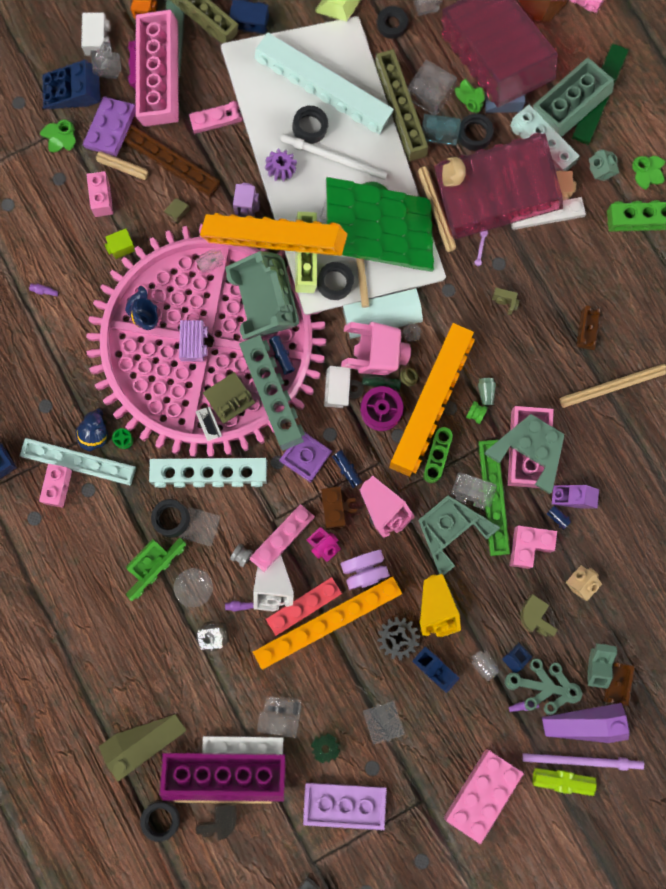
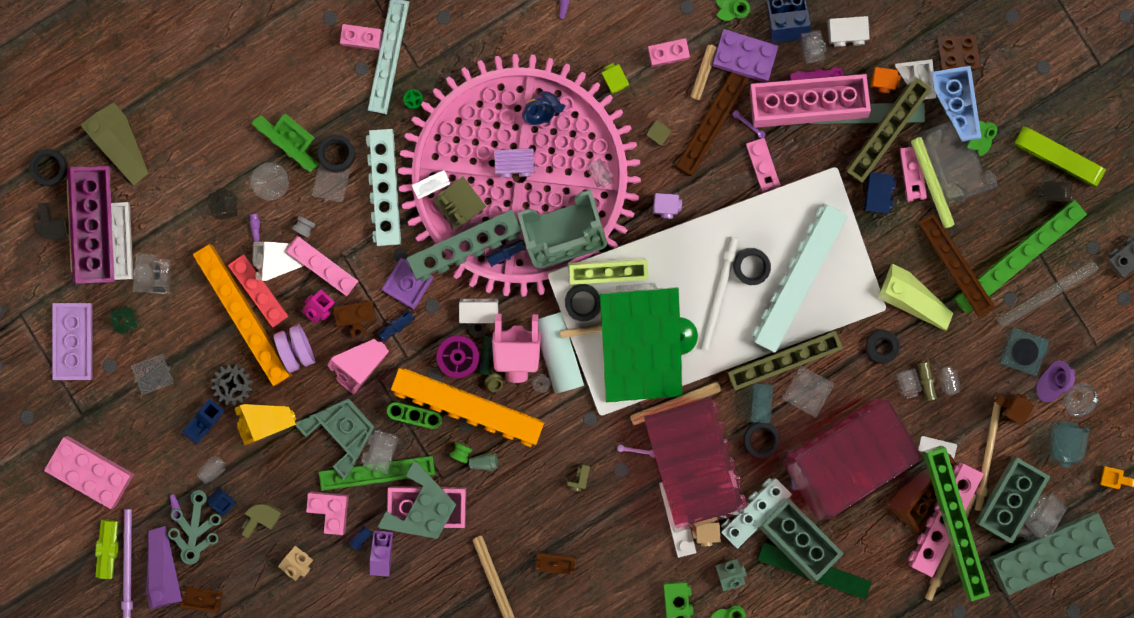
camera: 90 degrees right, 10 degrees up
(92, 431) = (419, 68): dark blue hair -> none
(186, 118) = (761, 134): none -> medium lavender hinge
(274, 234) = (618, 237): light orange brick -> none
(281, 171) = (697, 235): medium lavender gear -> none
(453, 172) = (698, 417): tan hair -> none
(471, 97) = (795, 436): bright green plate -> none
(601, 665) = (216, 581): sand green brick -> none

